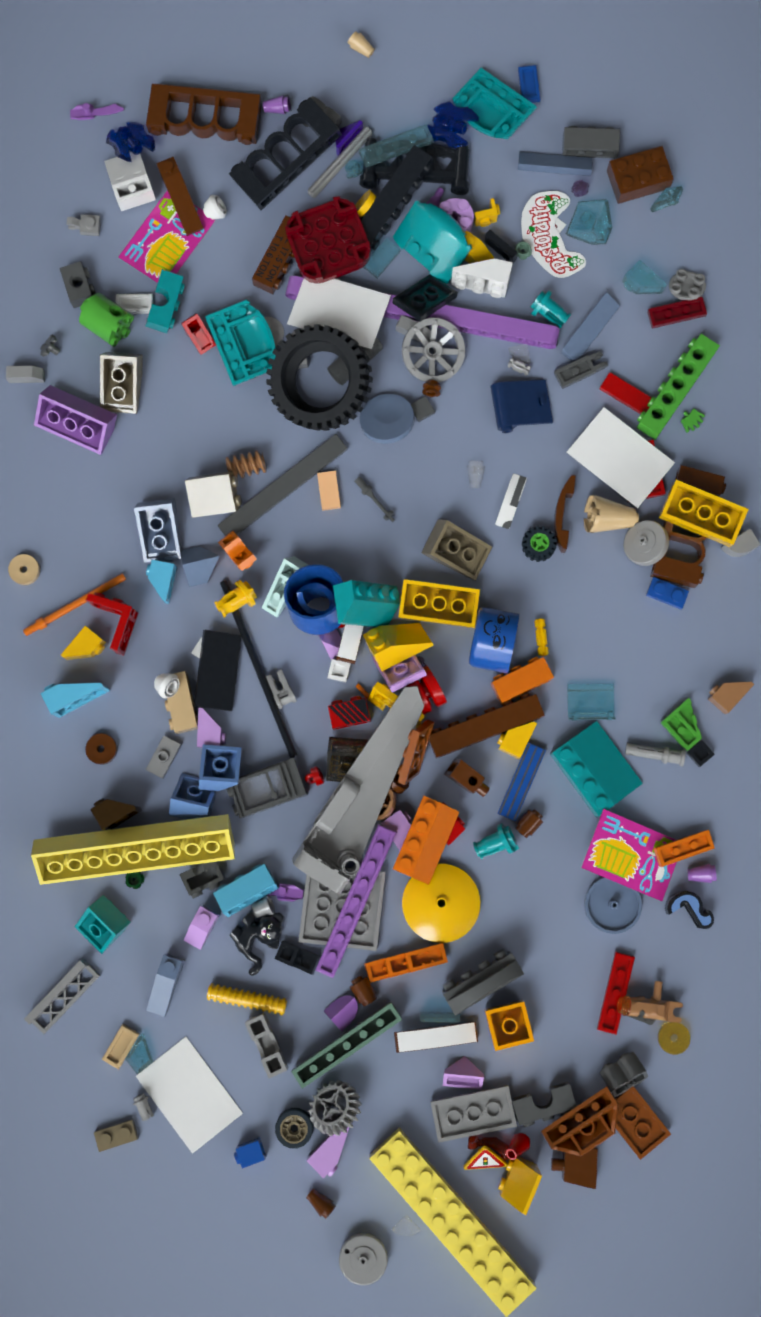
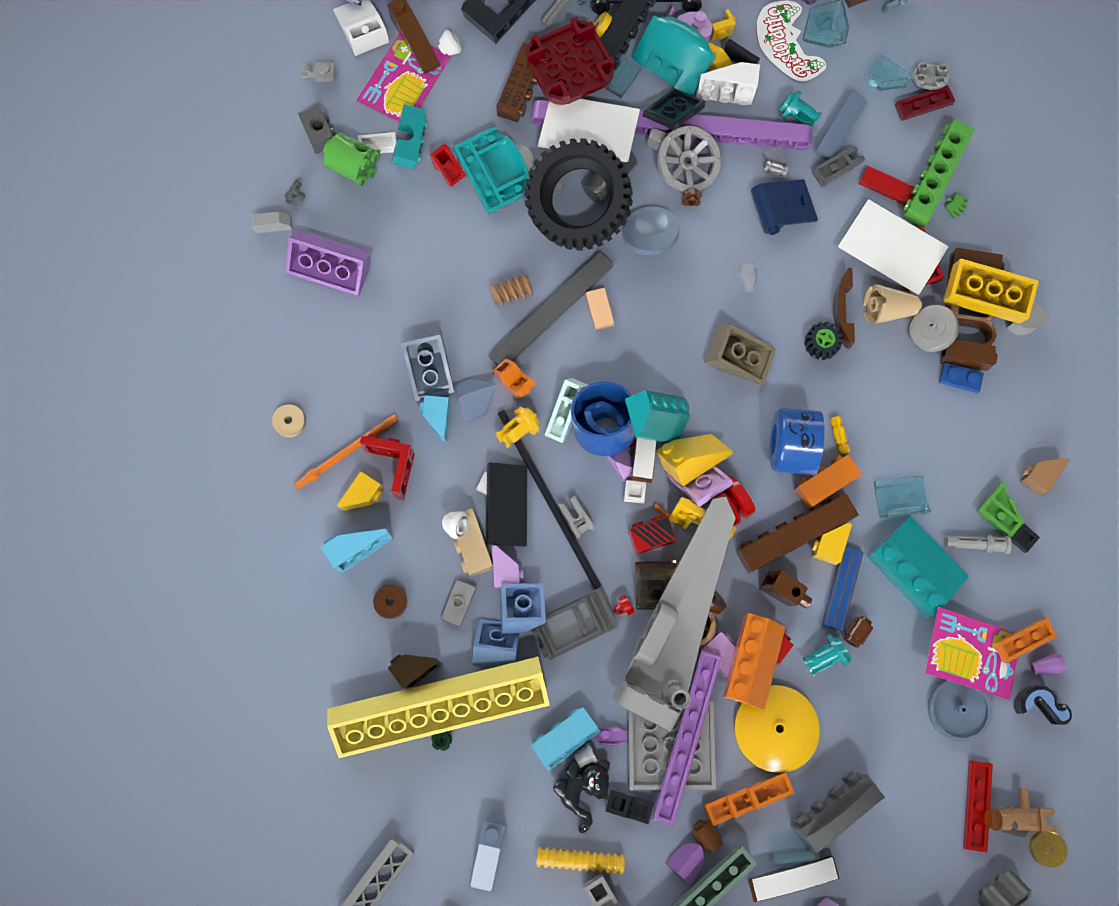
camera: 15 degrees left, 5 degrees down
(102, 924) = (411, 794): teal slope -> none
(120, 381) = (371, 220): dark tan slope -> none
(201, 877) = (516, 729): dark grey cylinder -> none
(201, 927) = (521, 785): lavender slope -> none
(213, 494) = (481, 322): brick -> none
(367, 490) = (639, 304): dark grey piece -> none
(415, 752) = (730, 567): dark orange plate -> none
(422, 409) = (685, 219): dark grey tile -> none
(439, 603) = (731, 411): yellow brick -> none
(509, 1025) = (872, 856): light orange brick -> none
(511, 501) = (787, 302): white sticker -> none
(523, 246) = (766, 54): sand green plate -> none

